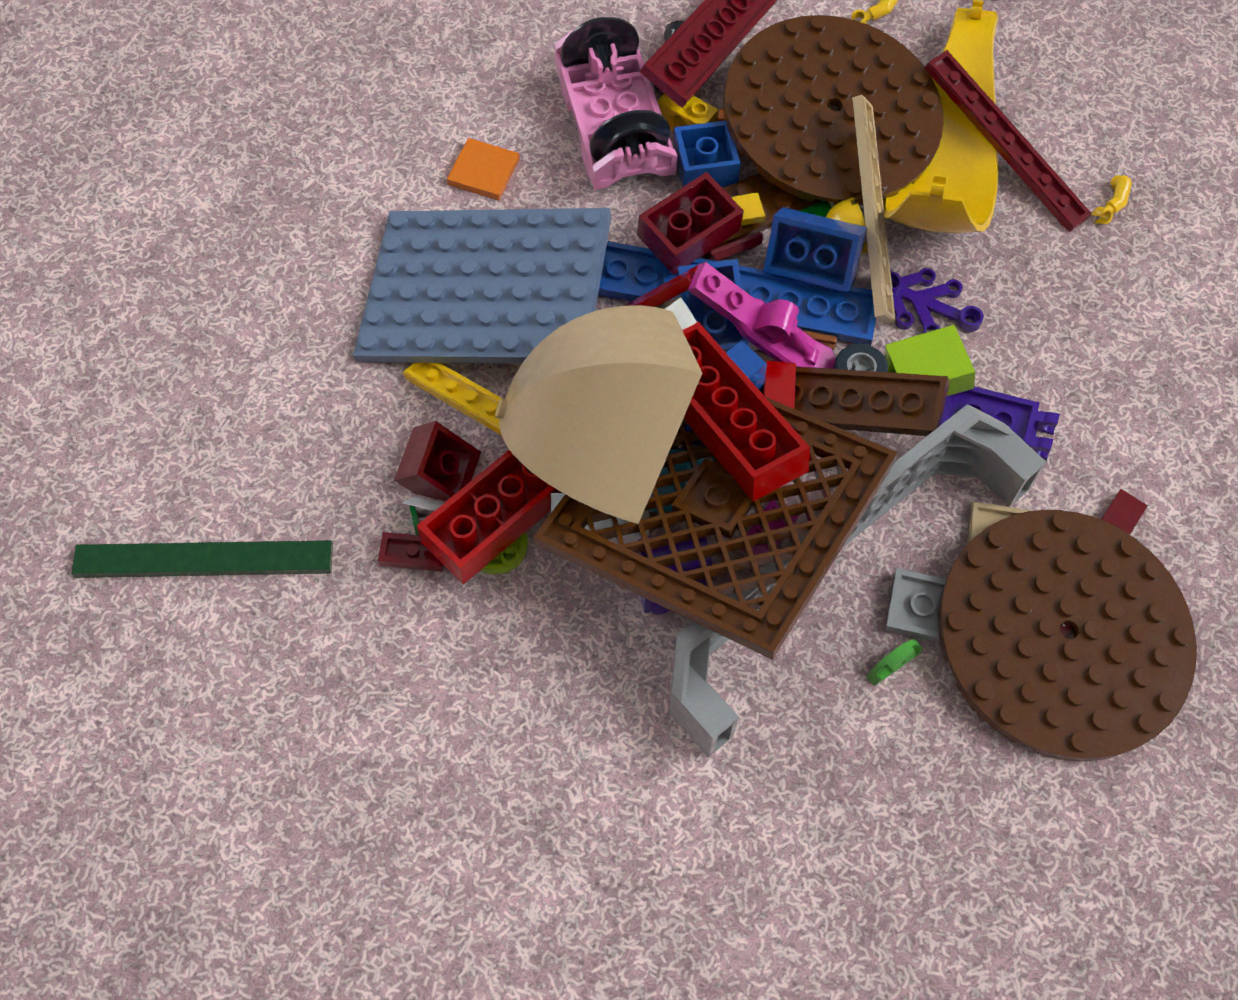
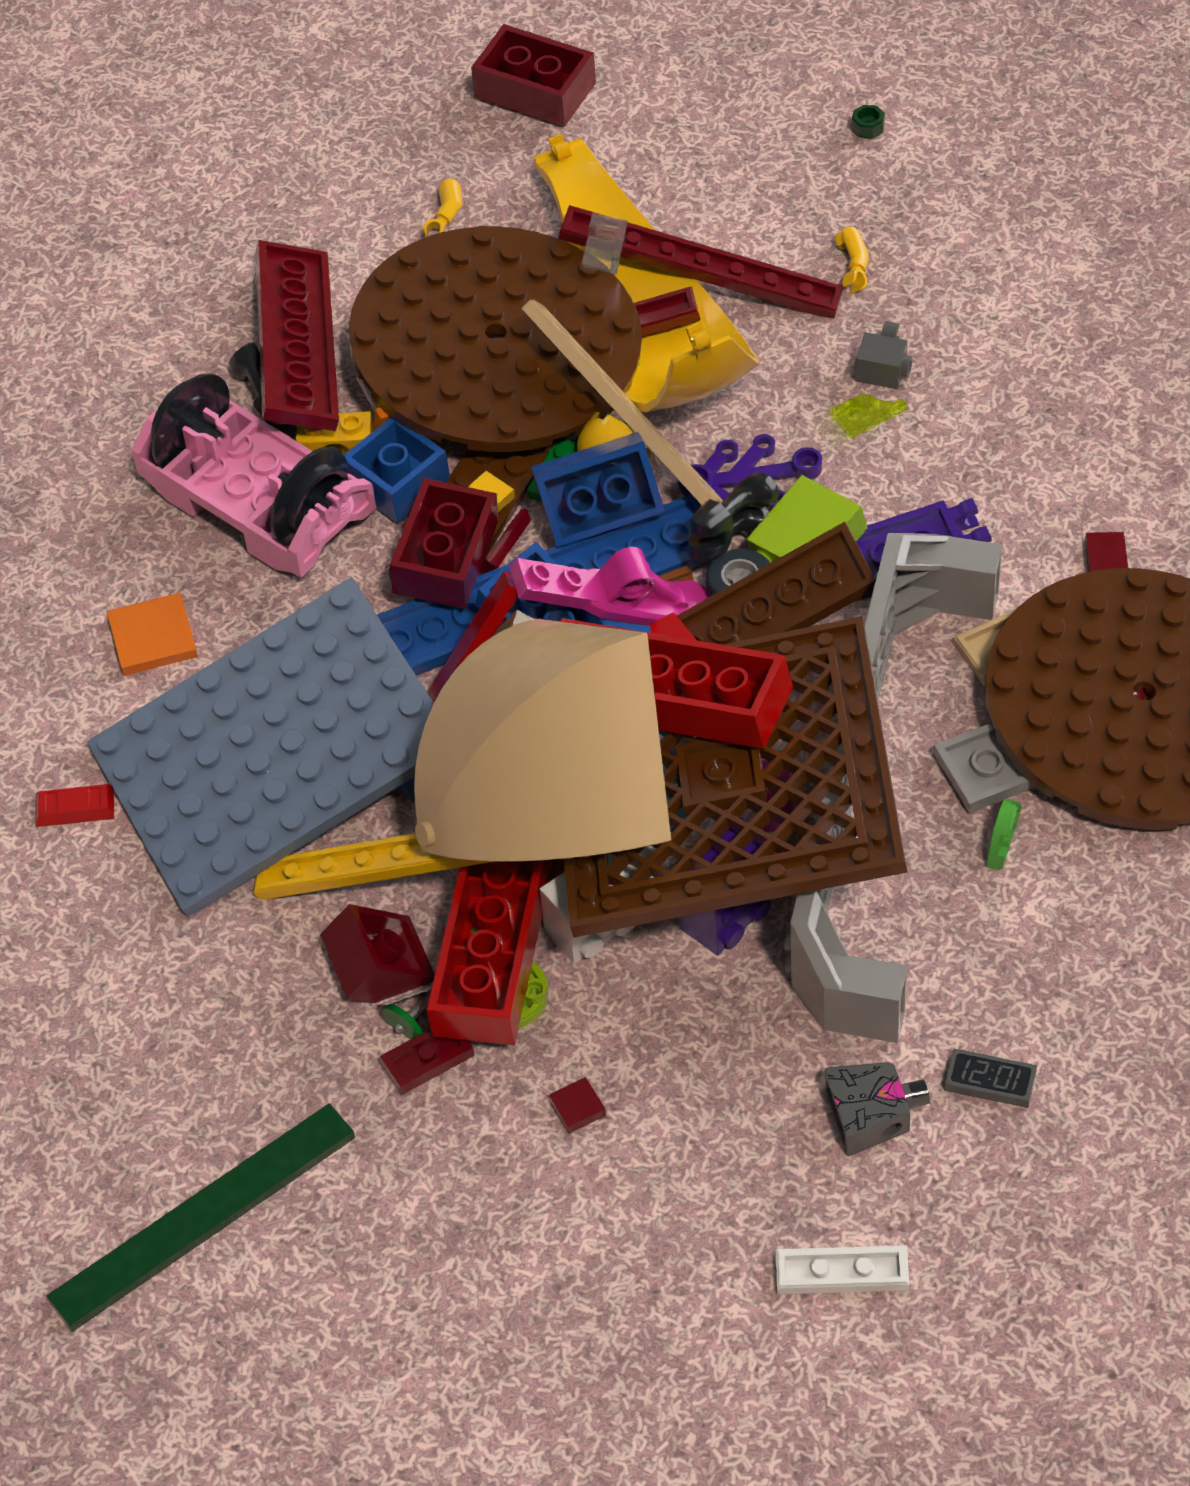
camera: 30 degrees left, 10 degrees down
(352, 247) = (74, 805): none -> red tile
(474, 650) = (577, 1105): none -> dark red tile
(543, 890) = (842, 1269): none -> white tile
(652, 789) = (871, 1103): none -> dark grey torso
(747, 828) = (991, 1078): none -> tile
(869, 322) = (739, 512): none -> black piece
(949, 88) = (604, 243): none -> clear panel
(959, 159) = (667, 311): none -> dark red tile
(1038, 308) = (865, 413): none -> clear neon green tile
(1078, 279) = (883, 358): none -> dark grey brick
(1199, 113) = (868, 121): none -> dark green tile

